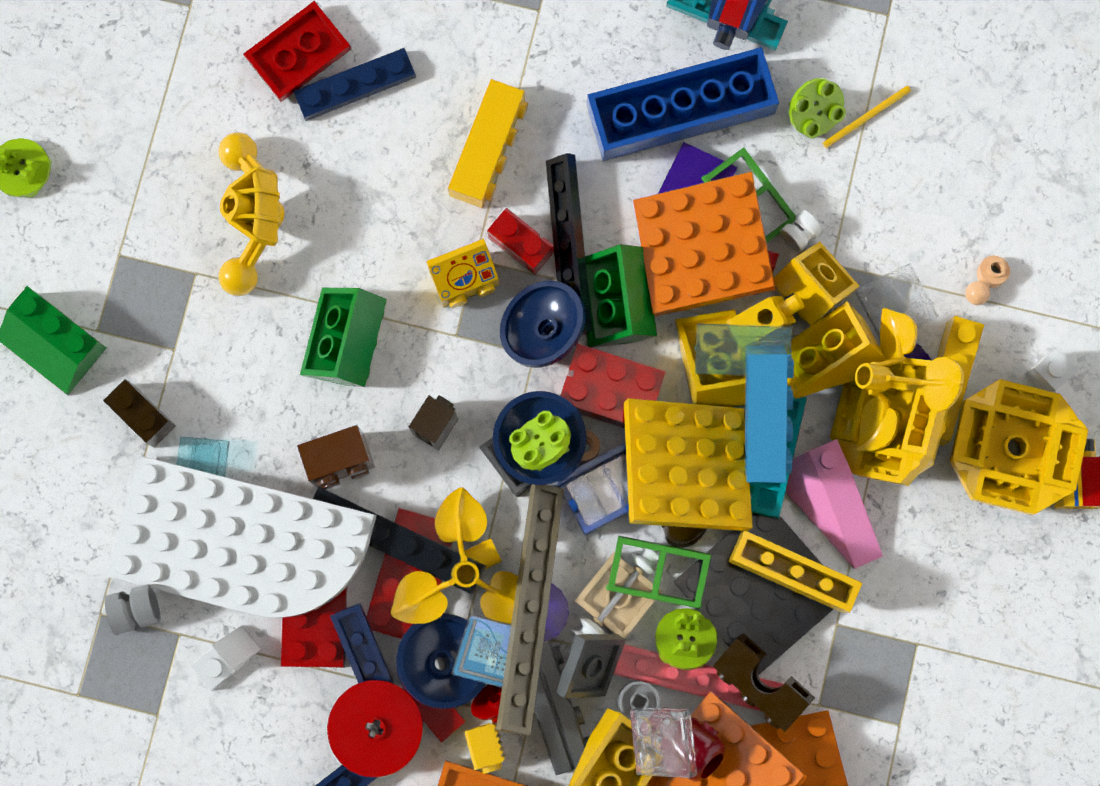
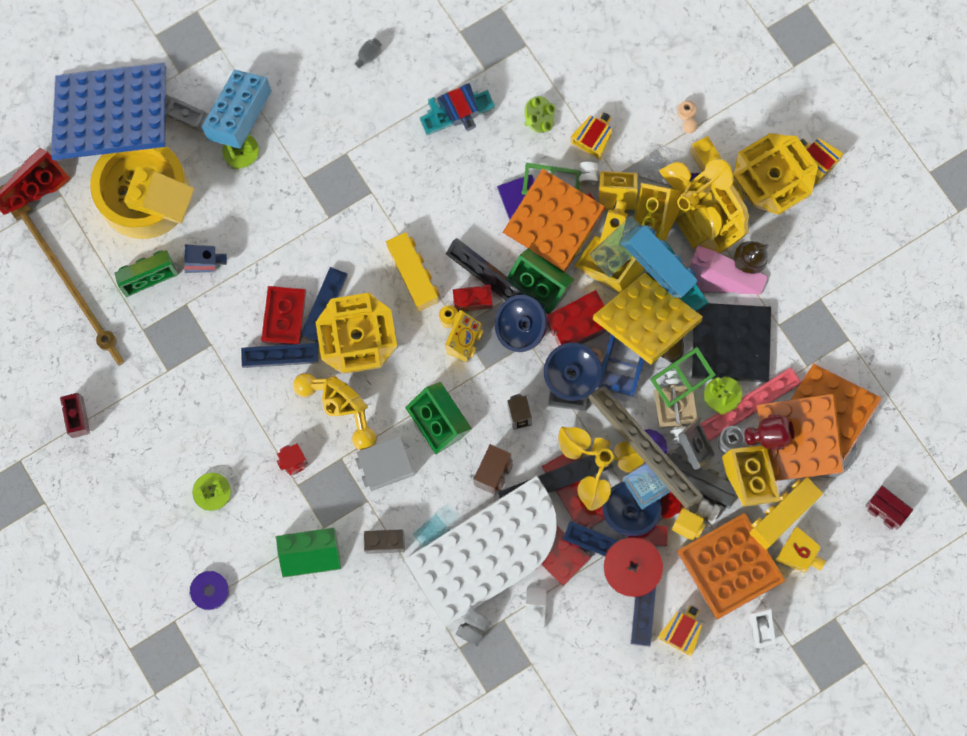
camera: 40 degrees left, 5 degrees down
(138, 219) = (291, 459): none -> red brick
(231, 327) = (384, 464): none -> light grey brick
(247, 91) = (279, 355): none -> dark blue plate
(342, 121) = (352, 315): none -> yellow piece
(468, 225) = (447, 322): none -> yellow brick
(528, 753) = (706, 510): none -> white wheel
(540, 441) = (576, 370): lime plate -> none
(663, 742) = (761, 440): clear plate -> none
(682, 104) = (480, 170): blue brick -> none
(779, 704) = (792, 378): dark brown arch -> none
(795, 572) = (739, 317): yellow brick -> none
(854, 193) = (593, 135): none -> torso
(867, 116) = (563, 99): yellow axle -> none
(885, 515) = (751, 257): none -> dark brown piece
(1051, 371) = (755, 127): white brick -> none

